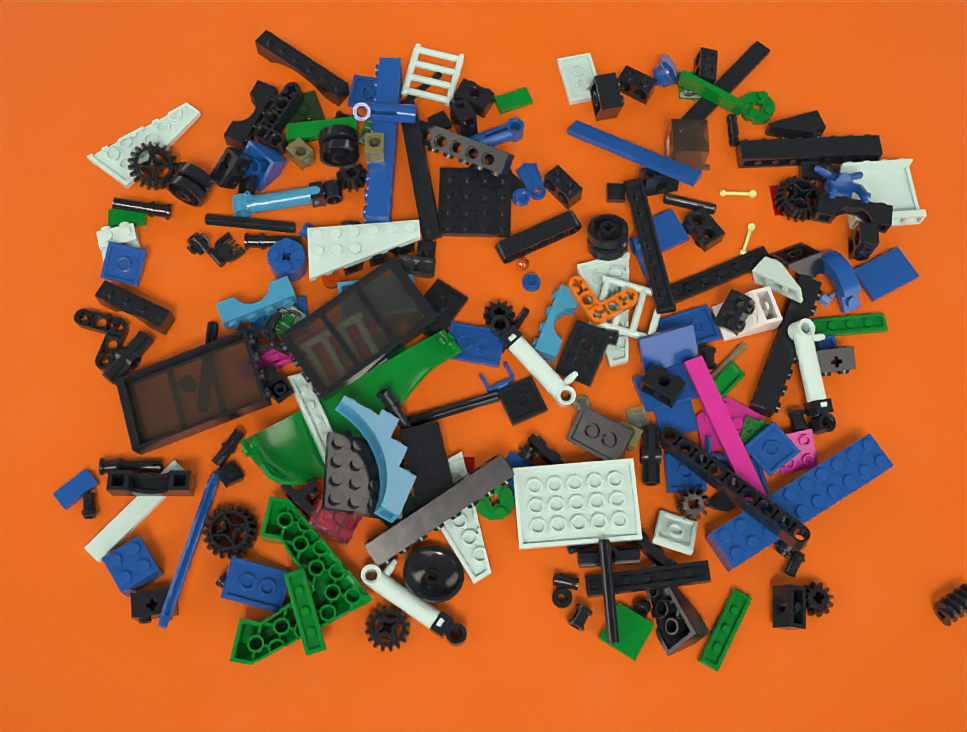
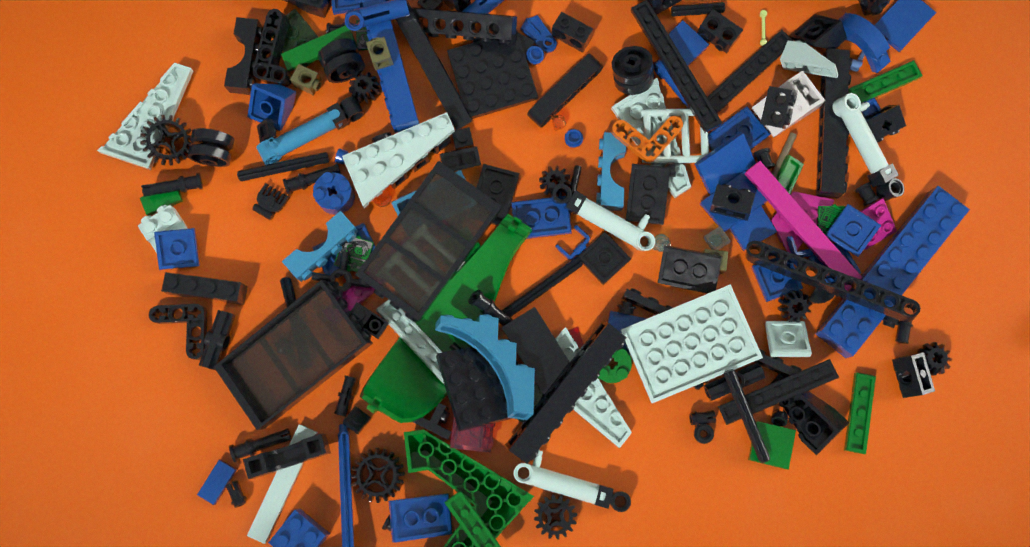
camera: 10 degrees left, 10 degrees up
(198, 243) = (241, 204): black gear -> none
(231, 168) = (244, 118): black brick -> none
(435, 564) = (581, 441): black dish -> none
(579, 617) = (726, 447): black bush -> none
(615, 193) = (623, 21): black plate -> none
(650, 455) = (741, 272): black piece -> none

